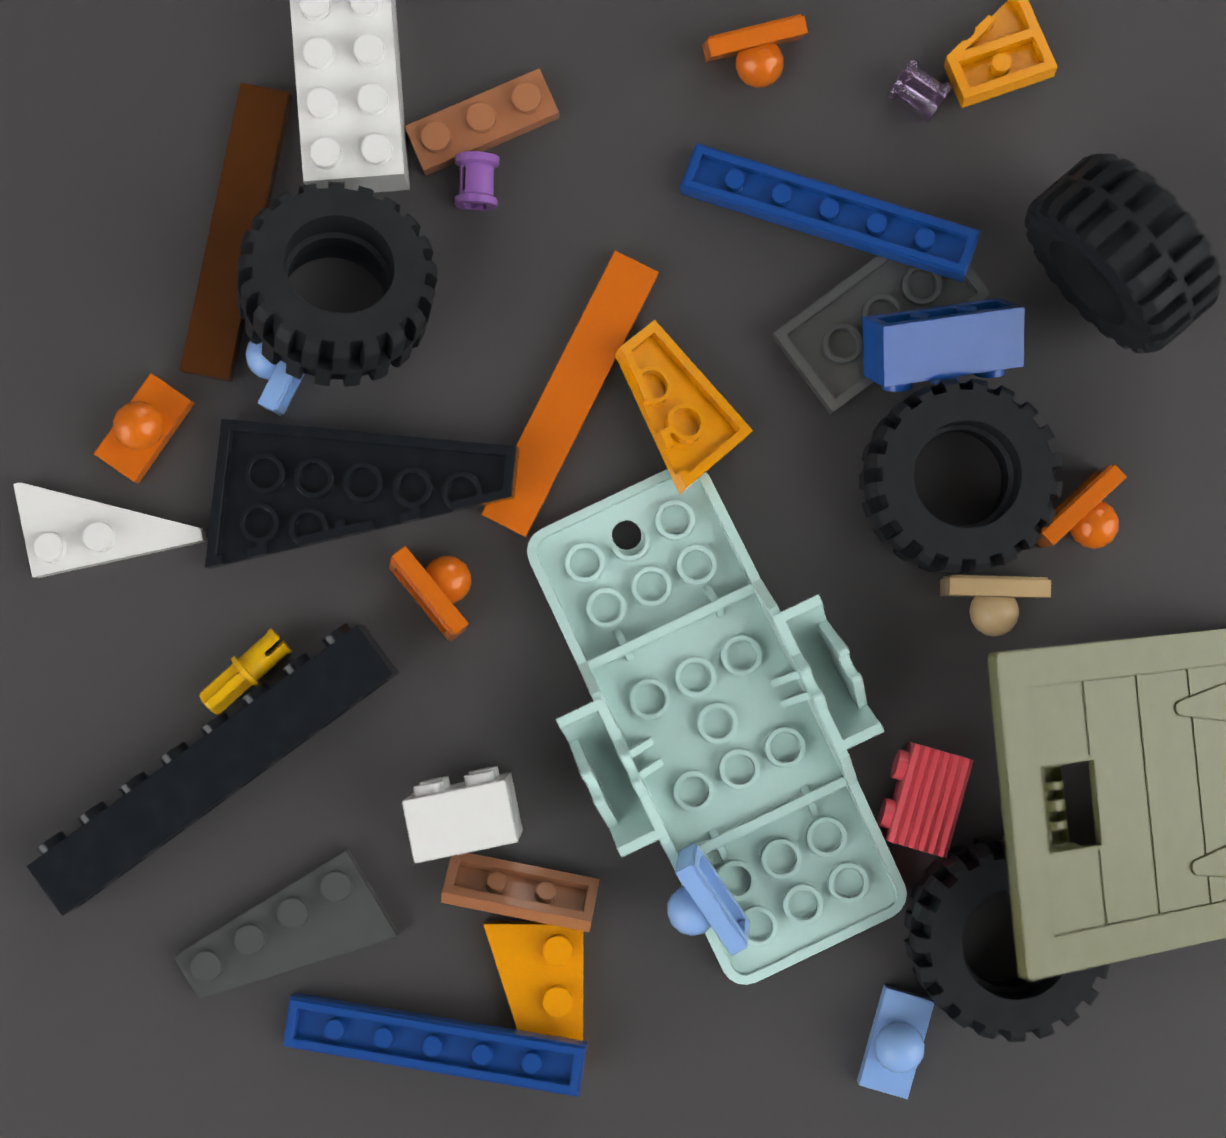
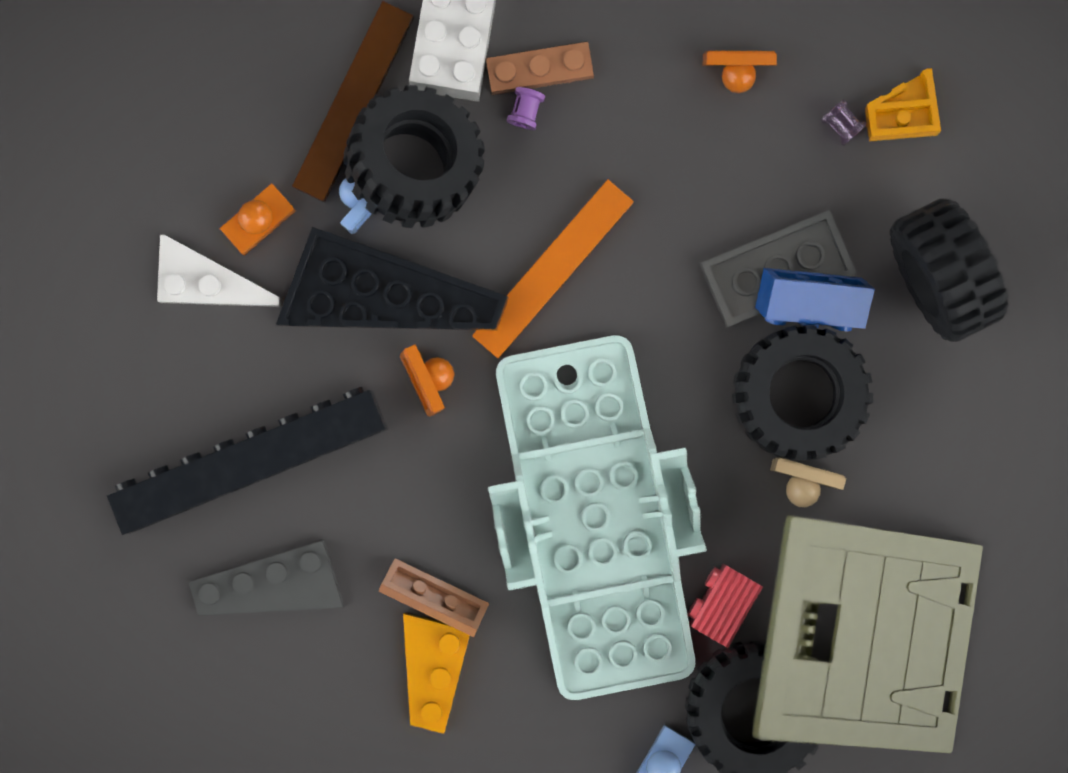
camera: 15 degrees right, 0 degrees up
(244, 673) = (284, 402): yellow axle -> none
(435, 1044) = (350, 686): blue tile -> none
(463, 815) = (408, 535): white brick -> none
(680, 405) = (625, 296): light orange wing -> none
(706, 902) = (557, 635): light blue tile -> none
(830, 212) = (760, 190): blue tile -> none
(1085, 514) = (882, 439): orange tile -> none

